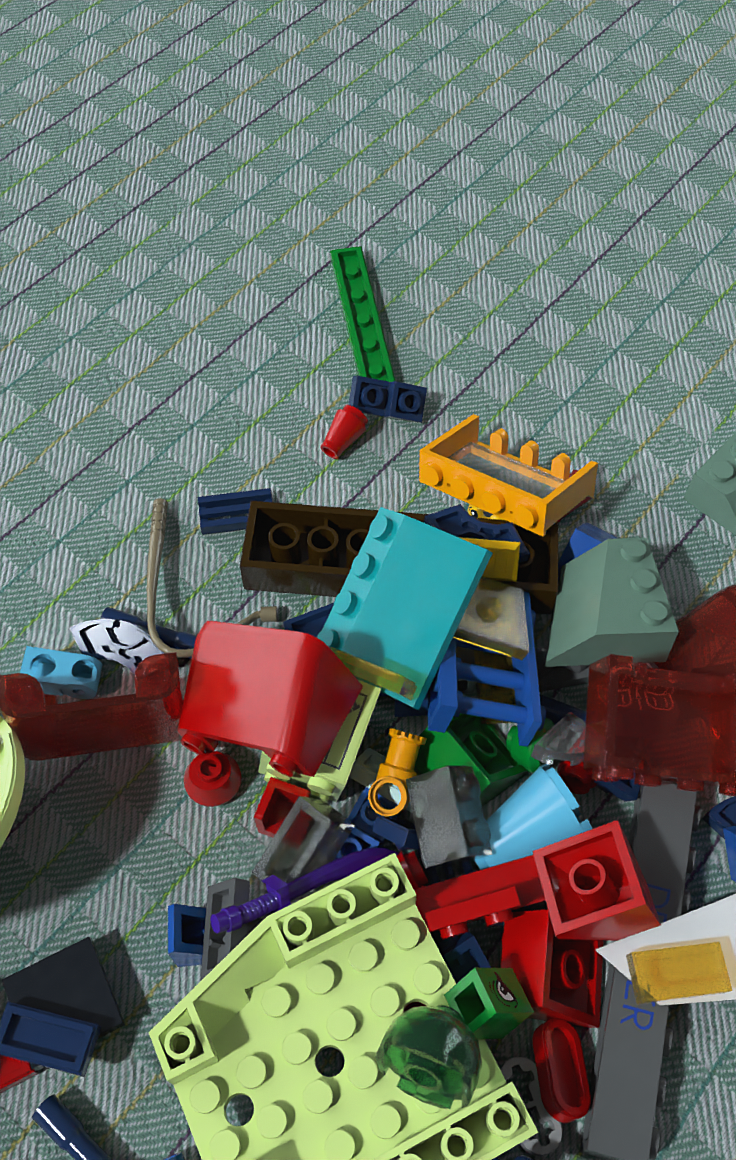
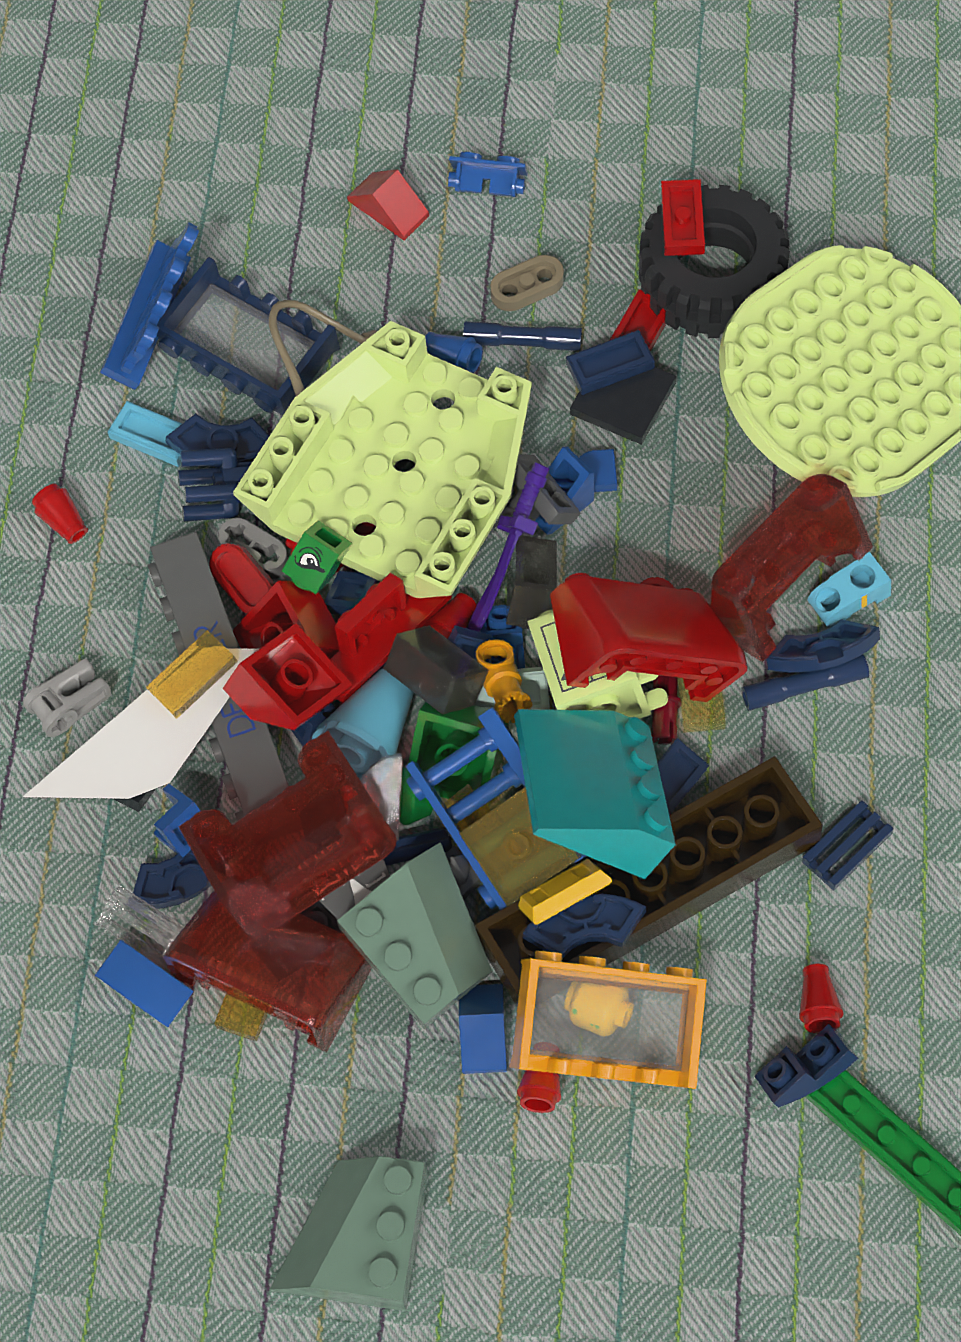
camera: 150 degrees right, 5 degrees up
(149, 943) = (603, 465): none -> blue tile
(156, 542) = (876, 745): dark tan piece -> none
(377, 675) = (569, 698): clear yellow tile -> none
(432, 1055) = (332, 485): clear green cylinder -> none

